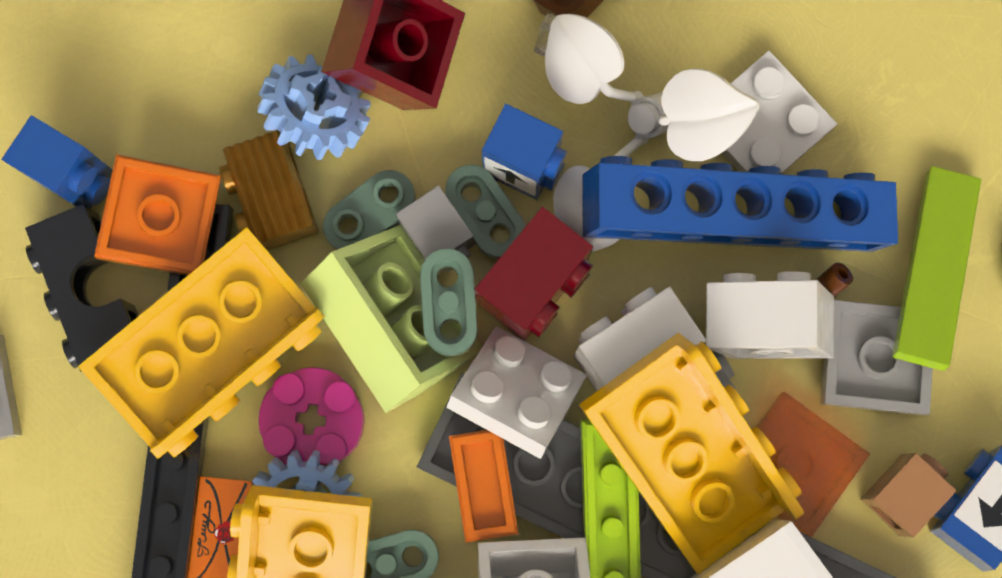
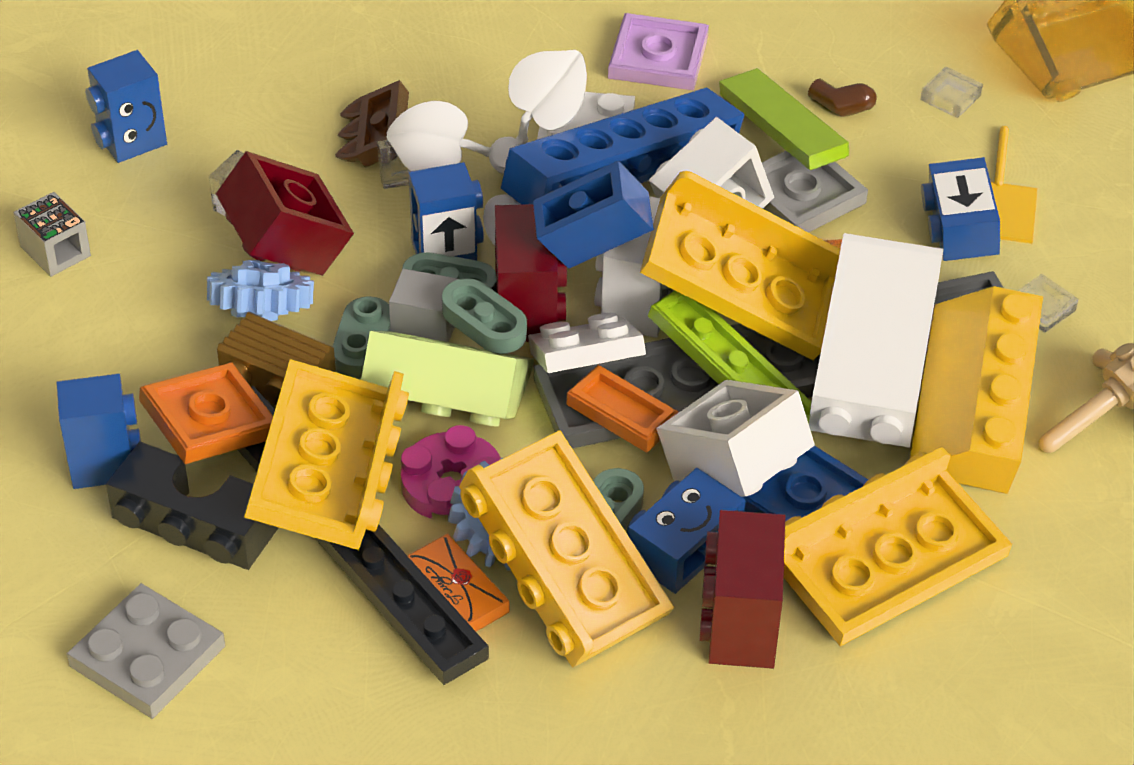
camera: 45 degrees left, 35 degrees down
(586, 317) = (593, 214): none -> blue brick
(909, 493) = (906, 223): medium nougat brick -> none
(918, 78) = (658, 51): none -> lavender tile

